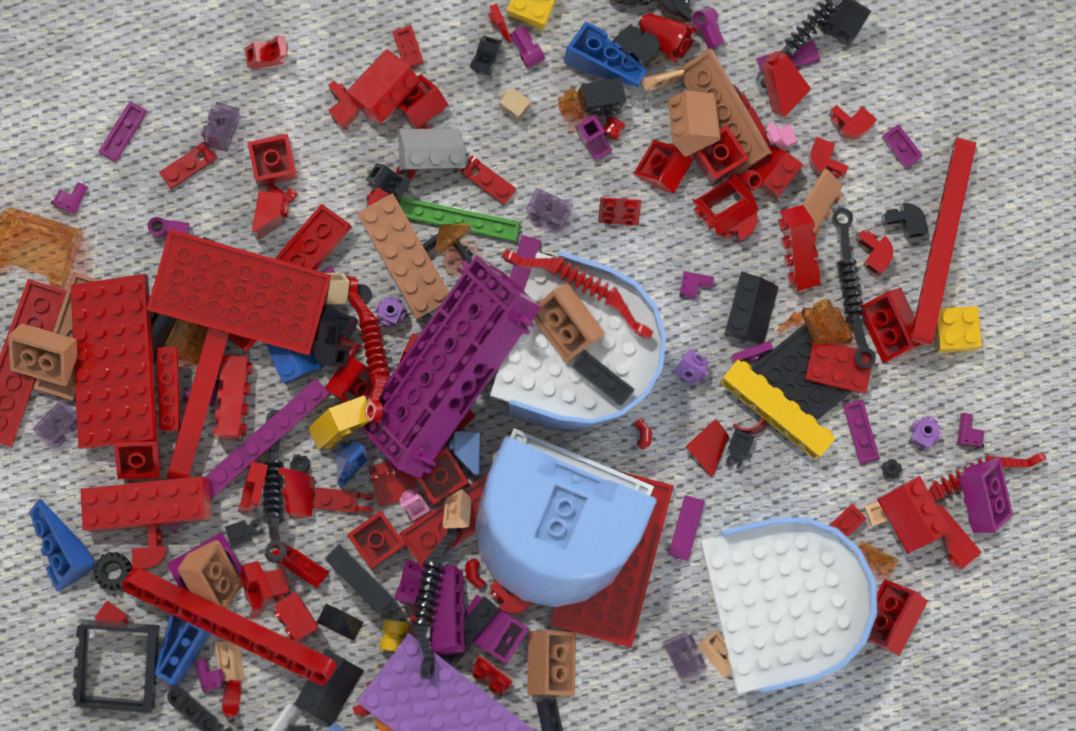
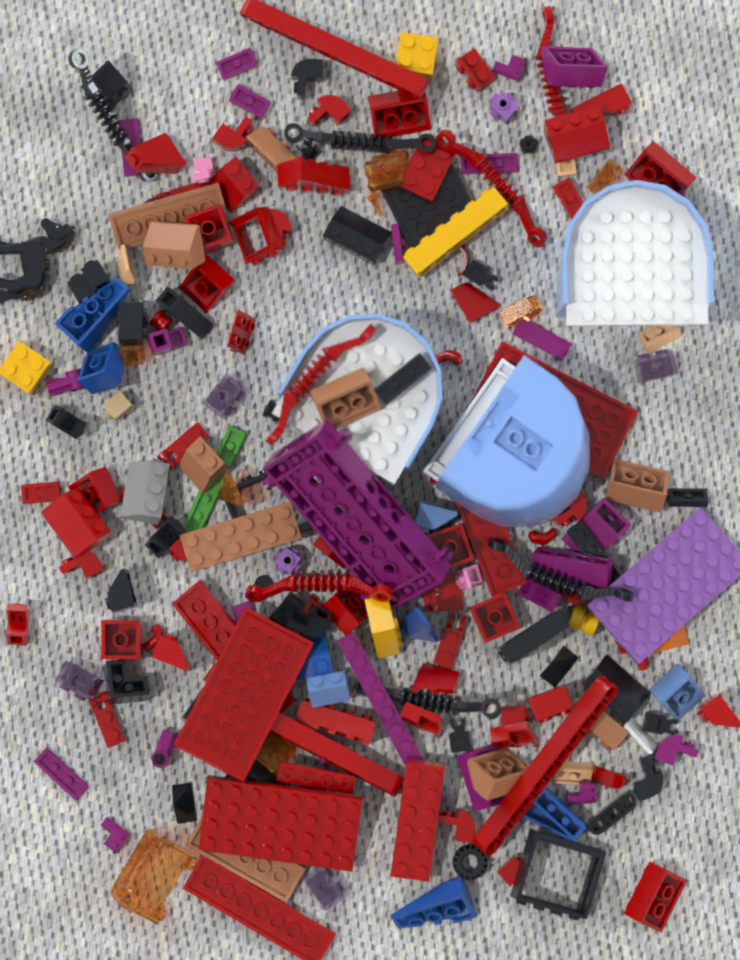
camera: 70 degrees left, 5 degrees up
(42, 354) = (258, 887): nougat slope -> none
(116, 261) = (183, 803): none -> black slope
(137, 459) = (375, 819): red slope -> none
(222, 169) = (120, 687): none -> black brick
(264, 381) = (328, 689): none -> medium blue slope
(281, 686) = (607, 731): none -> nougat brick
(300, 459) = (404, 673): black plate -> none
(302, 566) = (503, 688): red hinge -> none
(321, 149) = (121, 593): none -> black slope
(337, 289) = (256, 603): tan brick -> none
(457, 510) = (485, 538): light nougat slope -> none
(473, 203) = (203, 464): none -> nougat slope
(487, 673) = (643, 537): red hinge -> none
(495, 17) = (32, 404): red plate -> none
(527, 248) = (264, 427): magenta tile -> none
(548, 78) = (101, 369): none -> blue slope
(627, 149) = (184, 312): none -> black slope
(673, 35) = (86, 247): red cone -> none
(691, 281) = (319, 282): magenta piece -> none
(692, 367) = (399, 299): medium lavender brick -> none
(706, 21) = (85, 212): magenta piece -> none
(713, 501) = (522, 309): none -> clear orange slope
(750, 179) = (238, 207): red cone -> none
(828, 239) = (308, 149): none -> black plate
(852, 127) = (208, 104): red brick -> none
(860, 417) = (517, 202): none -> red piece
(865, 168) = (249, 101): none -> magenta plate
(957, 396) = (475, 70): none -> red bracket

